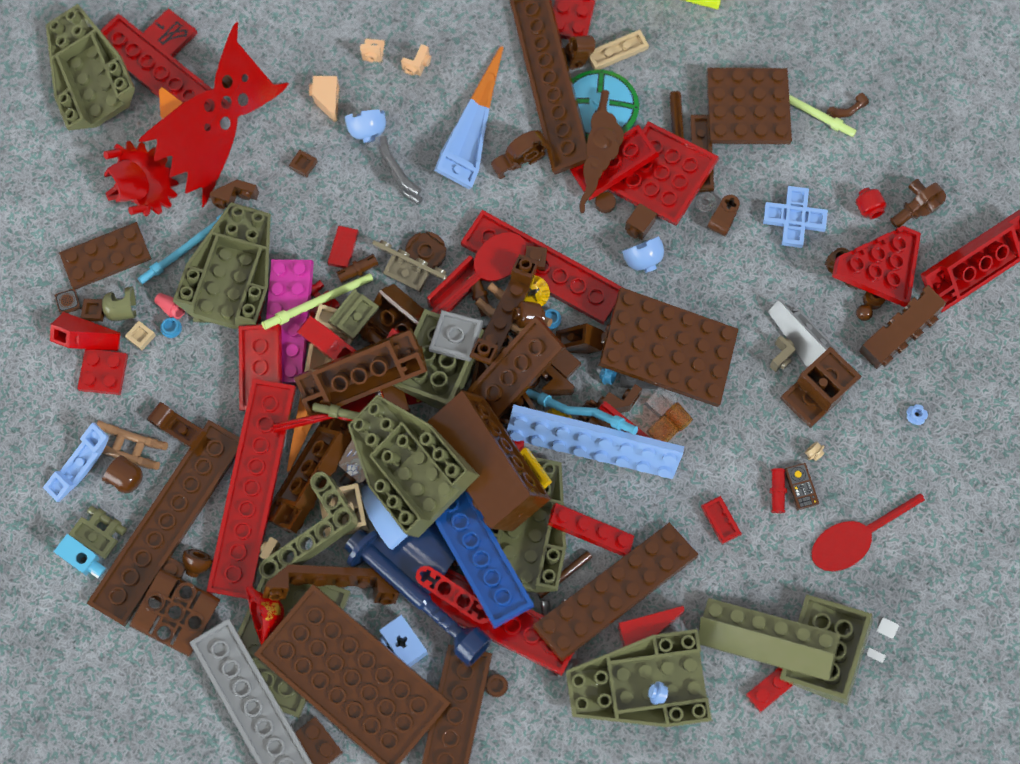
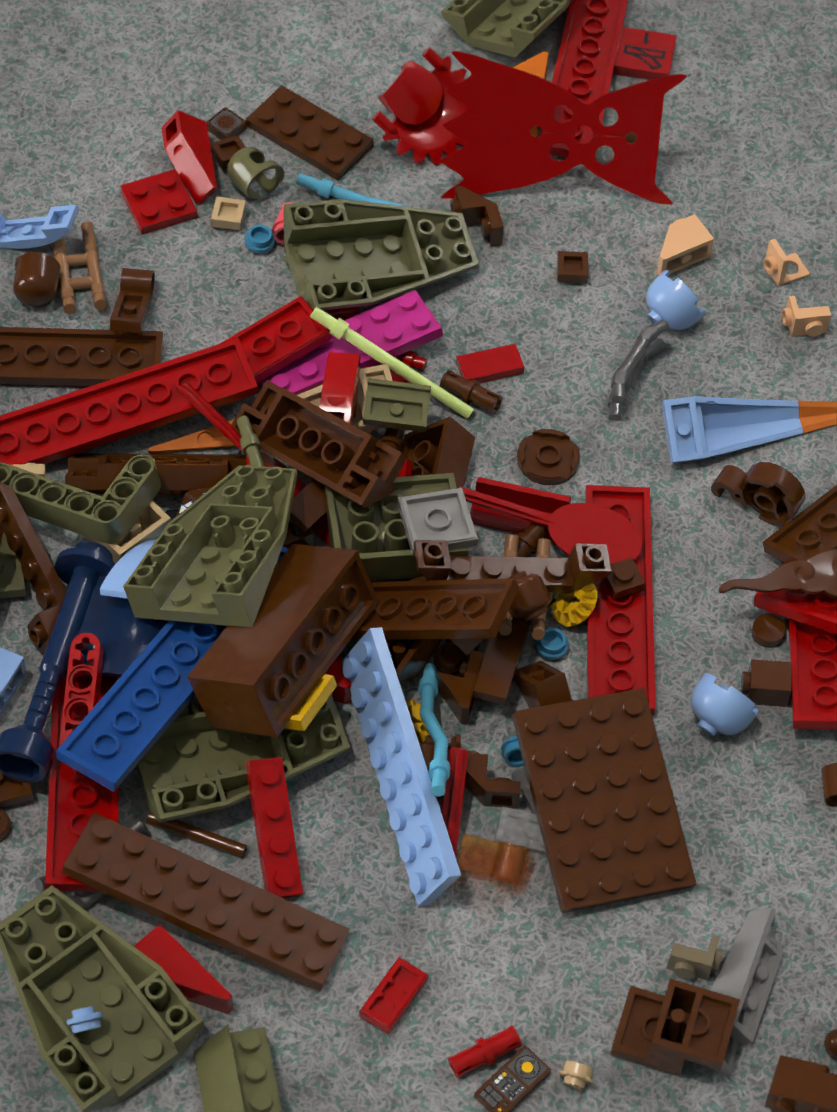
camera: 55 degrees right, 15 degrees down
(407, 270) = (504, 442): dark tan bracket -> none

